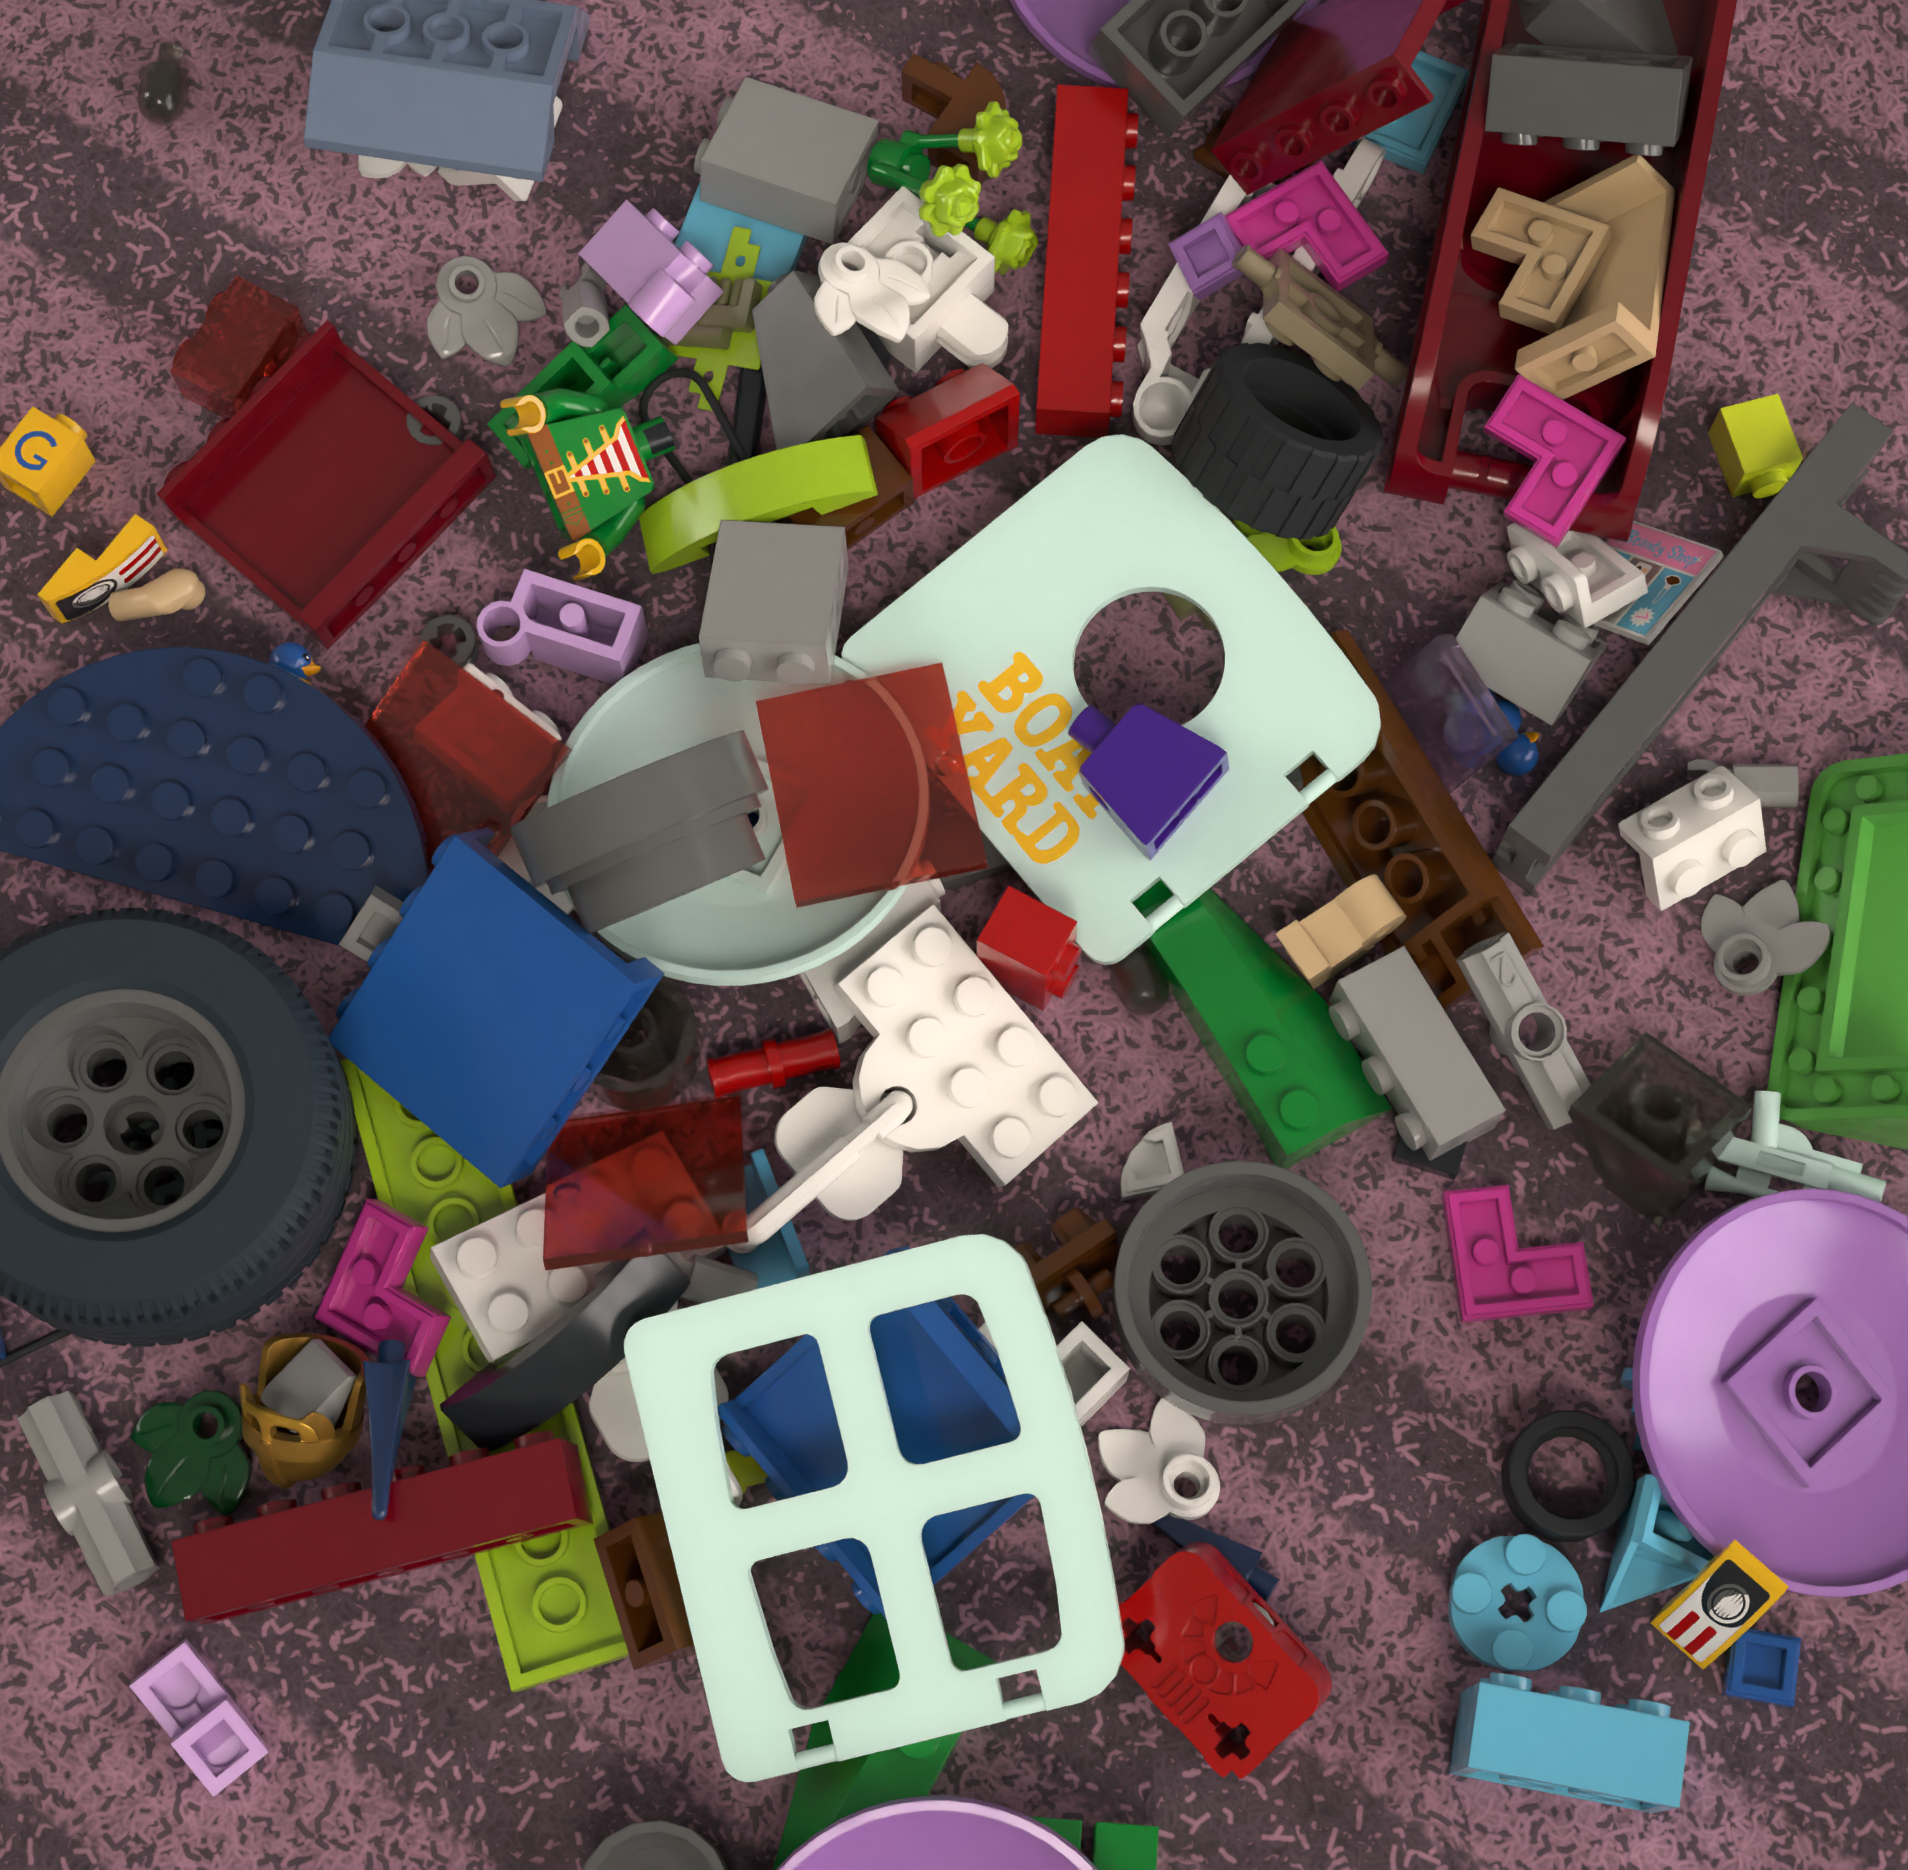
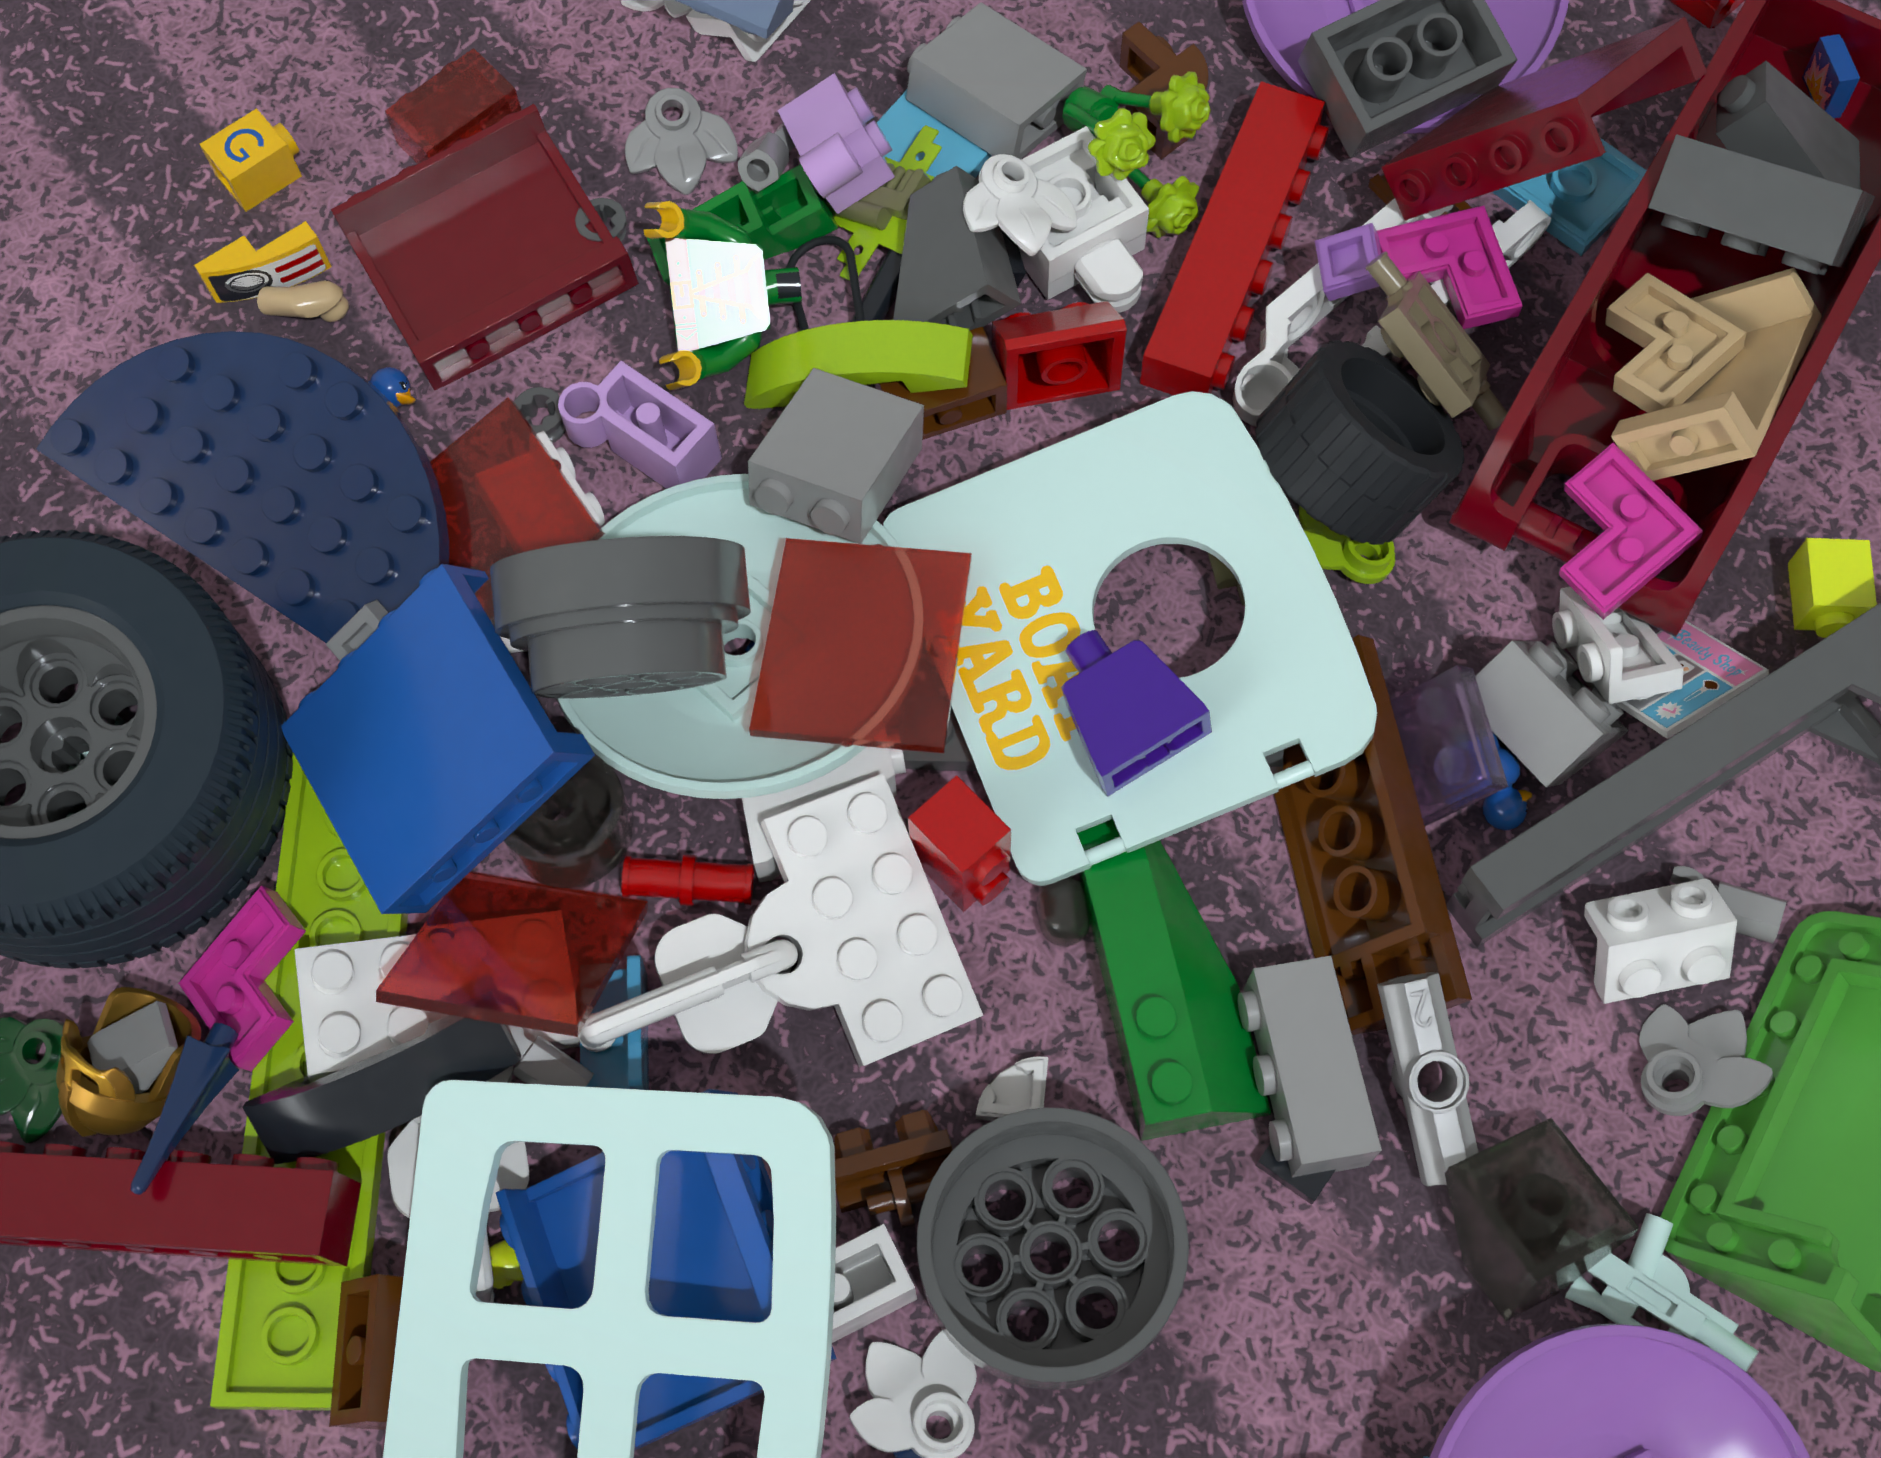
camera: 20 degrees right, 5 degrees down
(1341, 930) = (1275, 922): tan leg -> none
(1495, 1275) = (1326, 1320): dark pink tile -> none

